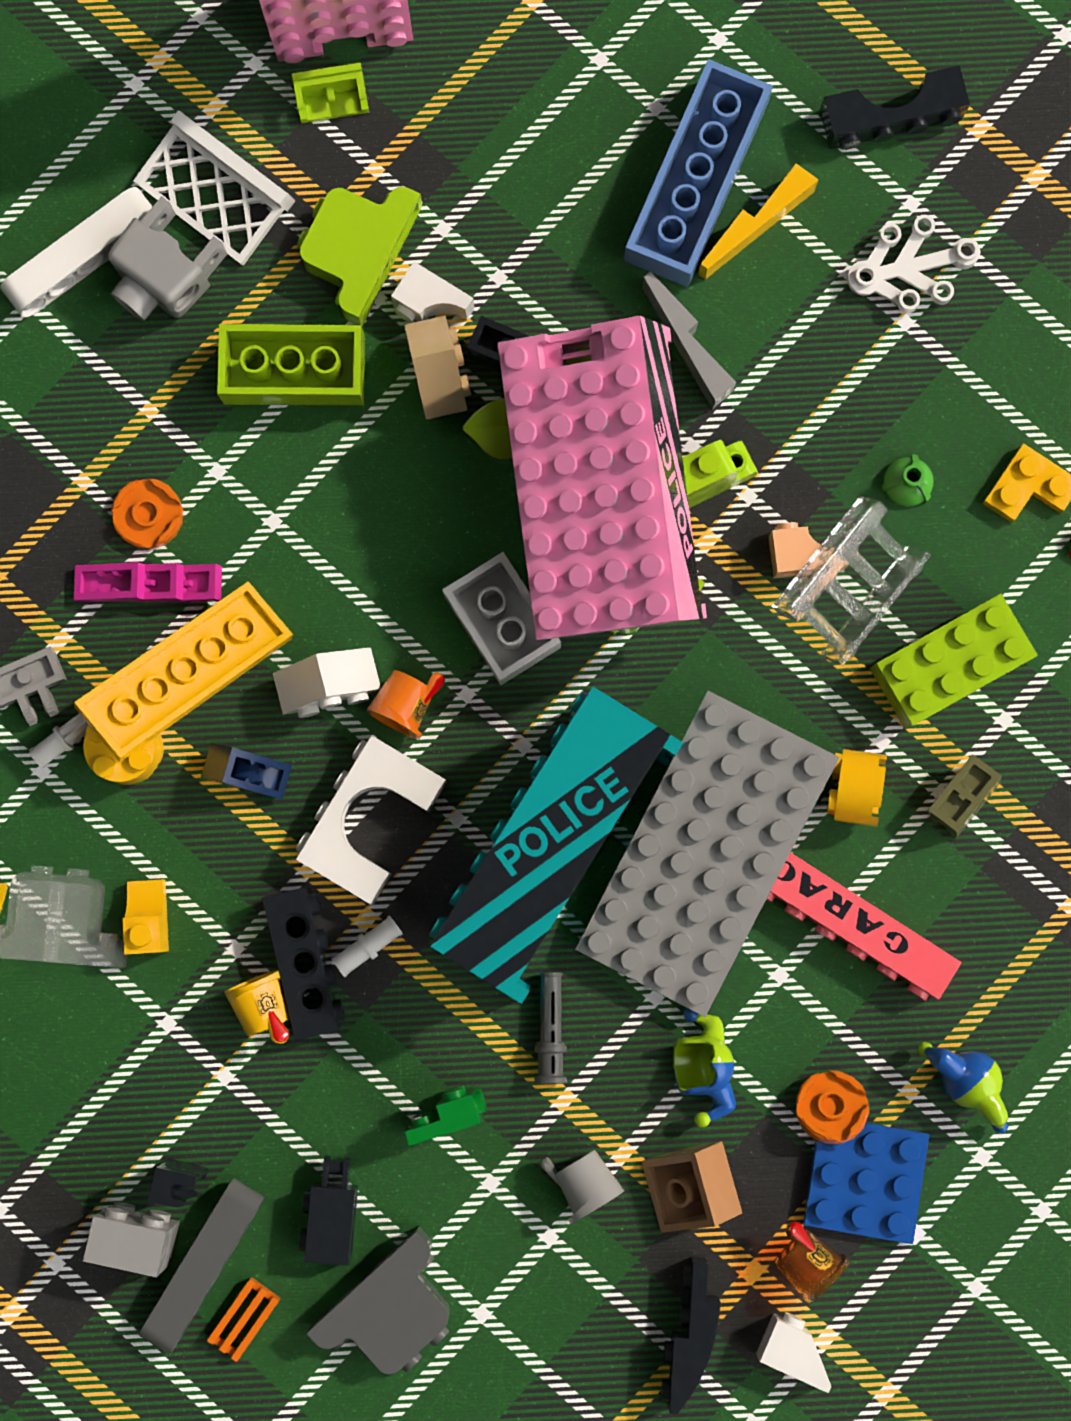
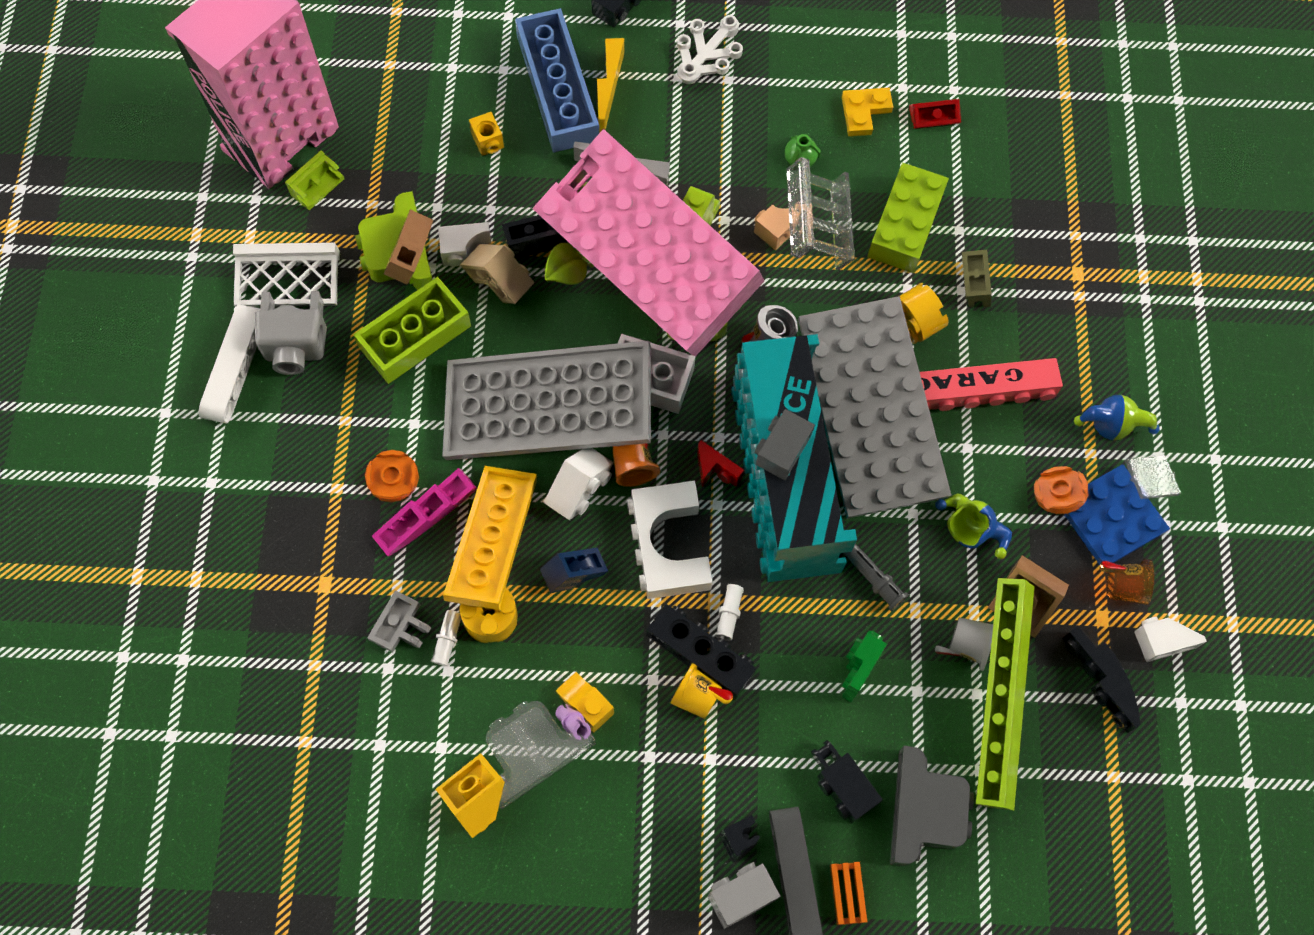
camera: 45 degrees left, 15 degrees down
(107, 934) = (573, 722): none -> lavender pin
(359, 264) = (408, 247): none -> medium nougat slope
(364, 566) = (548, 401): none -> light grey plate
(484, 768) = (713, 461): none -> red slope
(530, 841) = (784, 444): none -> dark grey brick
(564, 167) = (486, 125): none -> yellow brick
(564, 1268) = (1005, 694): none -> lime brick
(677, 675) = (773, 323): none -> light grey hat
(948, 1175) = (1152, 477): none -> clear piece

